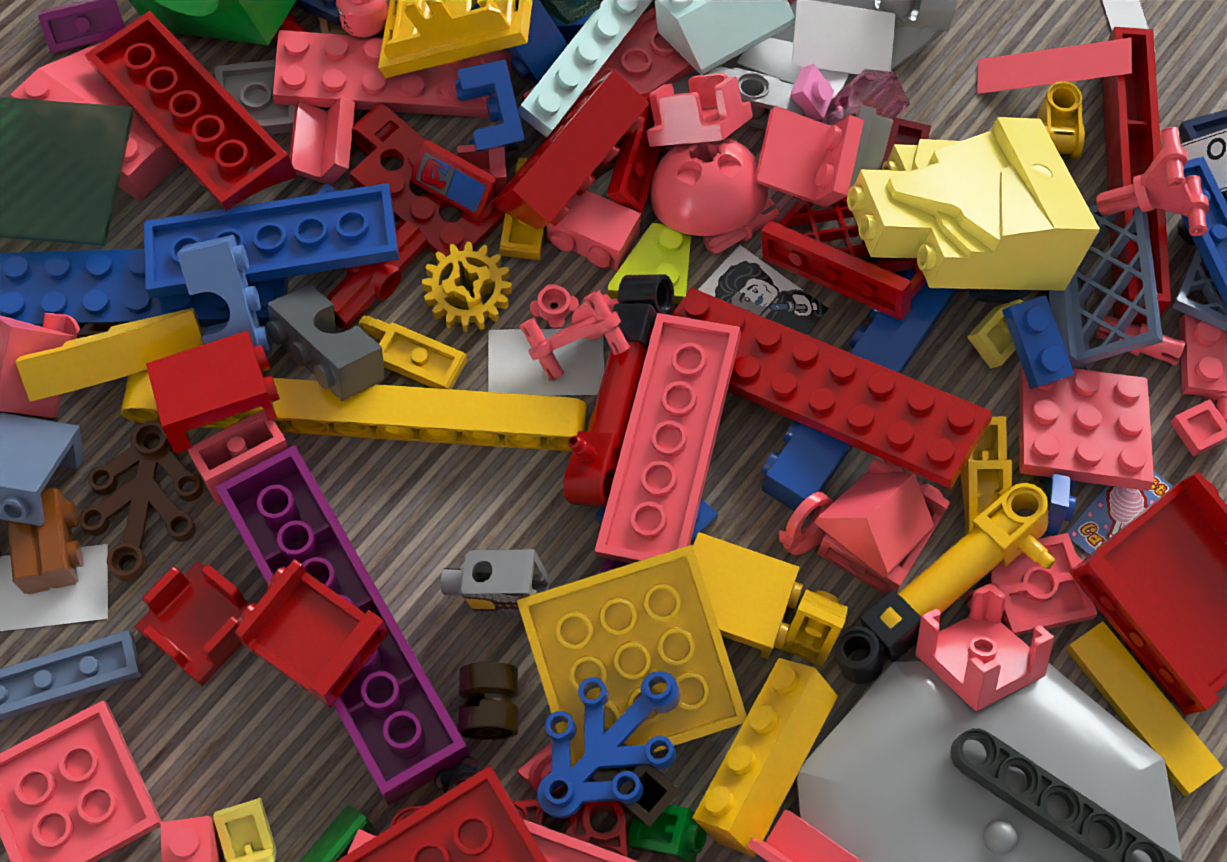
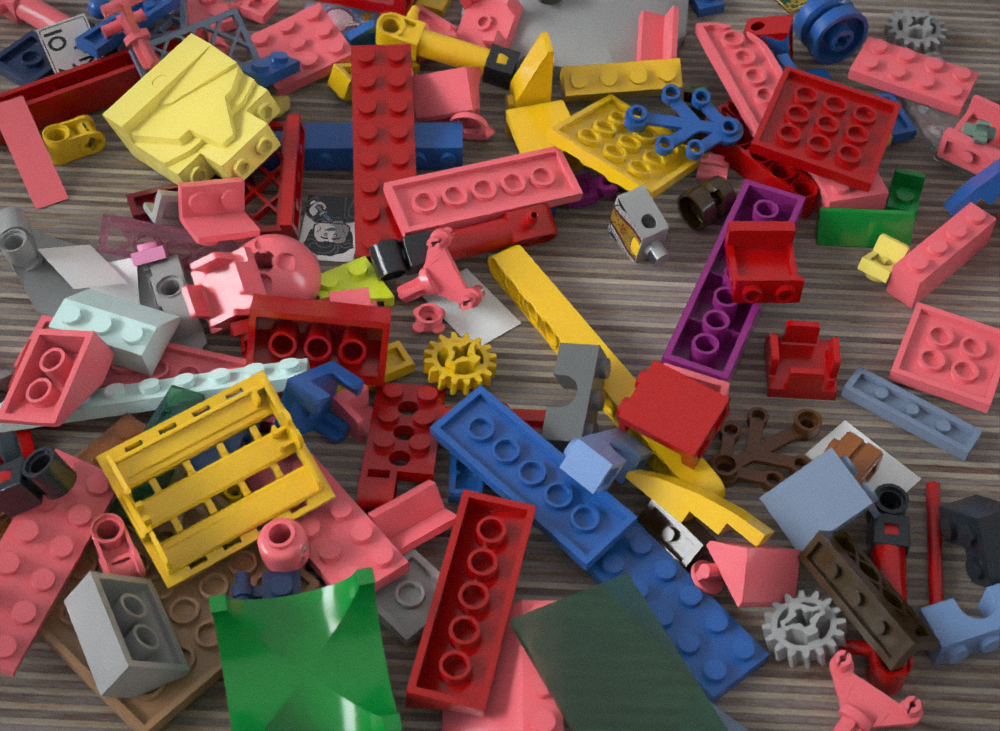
camera: 125 degrees left, 15 degrees down
(416, 354) = (533, 368): yellow hinge -> none
(453, 179) = (391, 402): slope -> none

